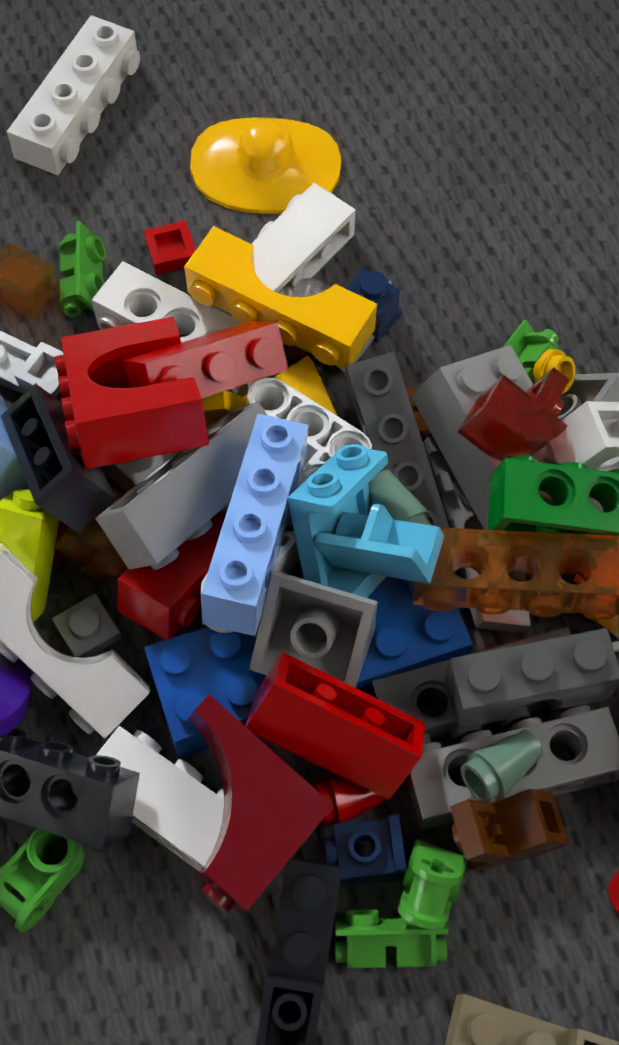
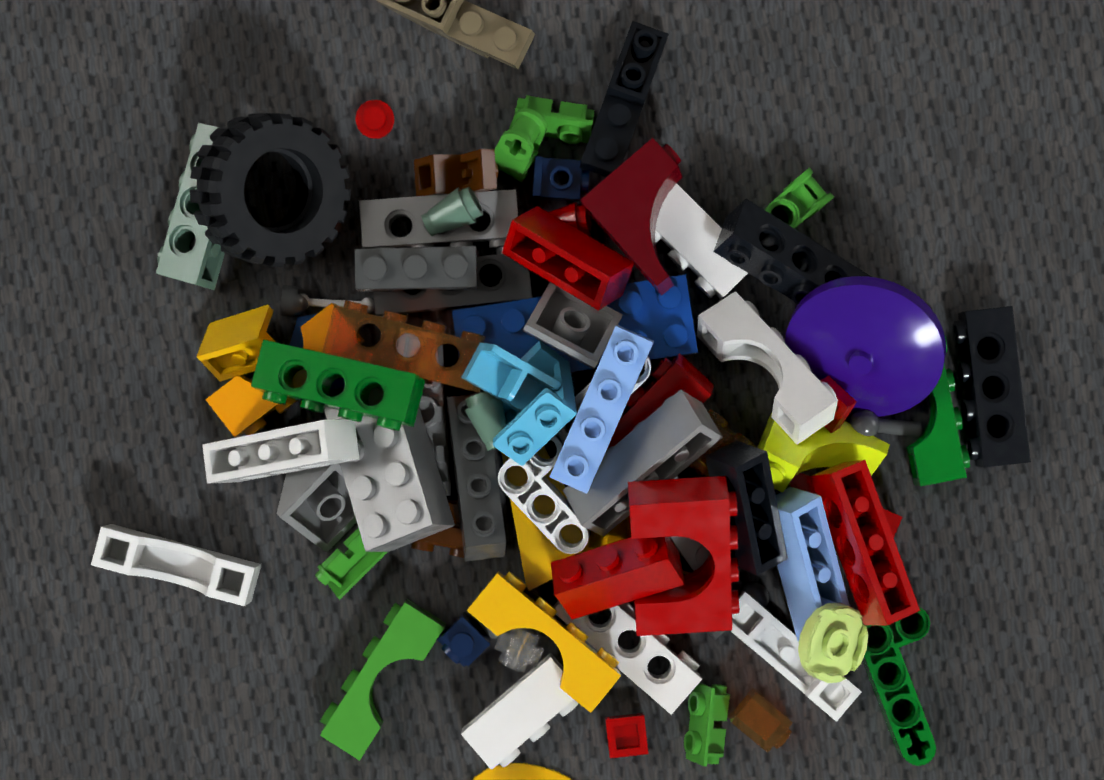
camera: 170 degrees left, 25 degrees up
(86, 628) = (739, 391): light grey plate -> none
(435, 297) = (355, 719): none -> bright green arch
(516, 422) = (381, 460): clear red brick -> none
(555, 359) = (329, 538): yellow plate -> none

